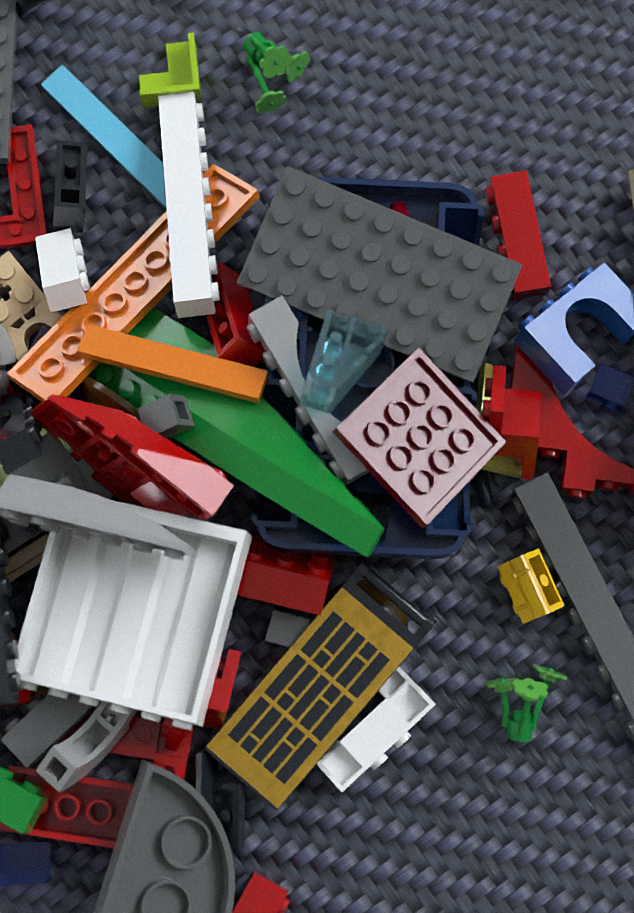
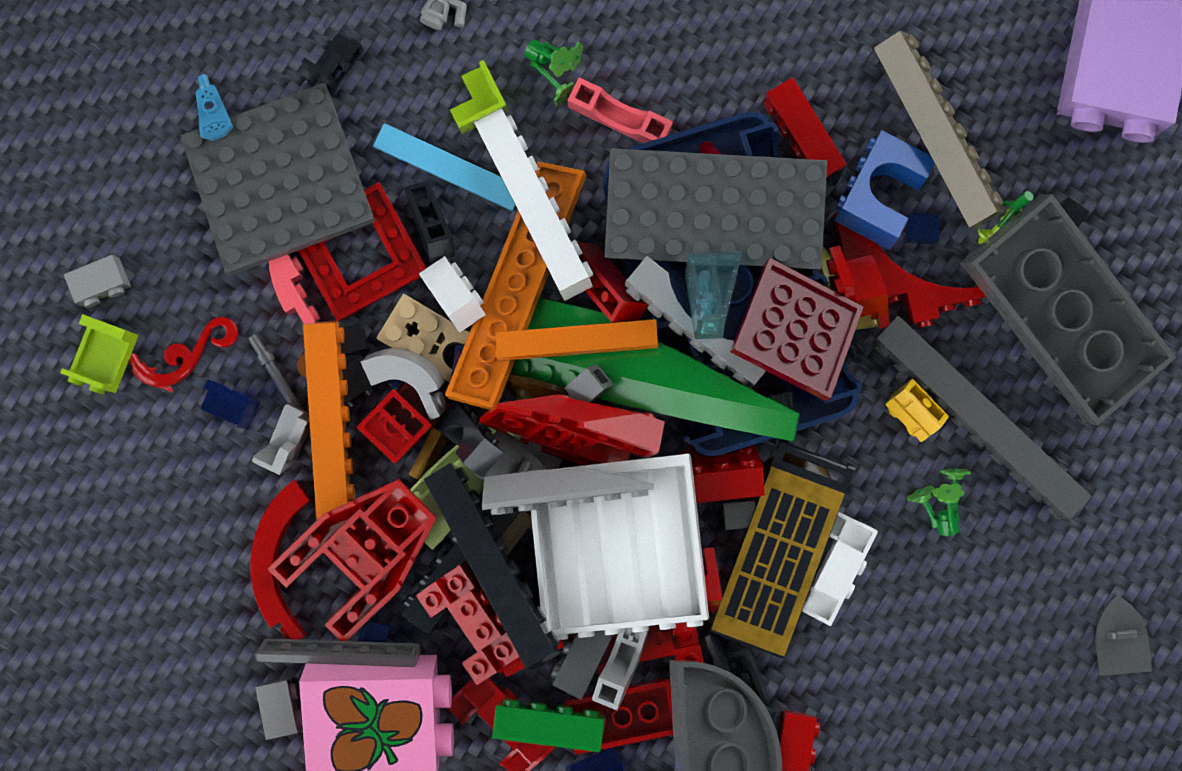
camera: 20 degrees left, 5 degrees up
(304, 130) = (599, 106): none -> coral arch

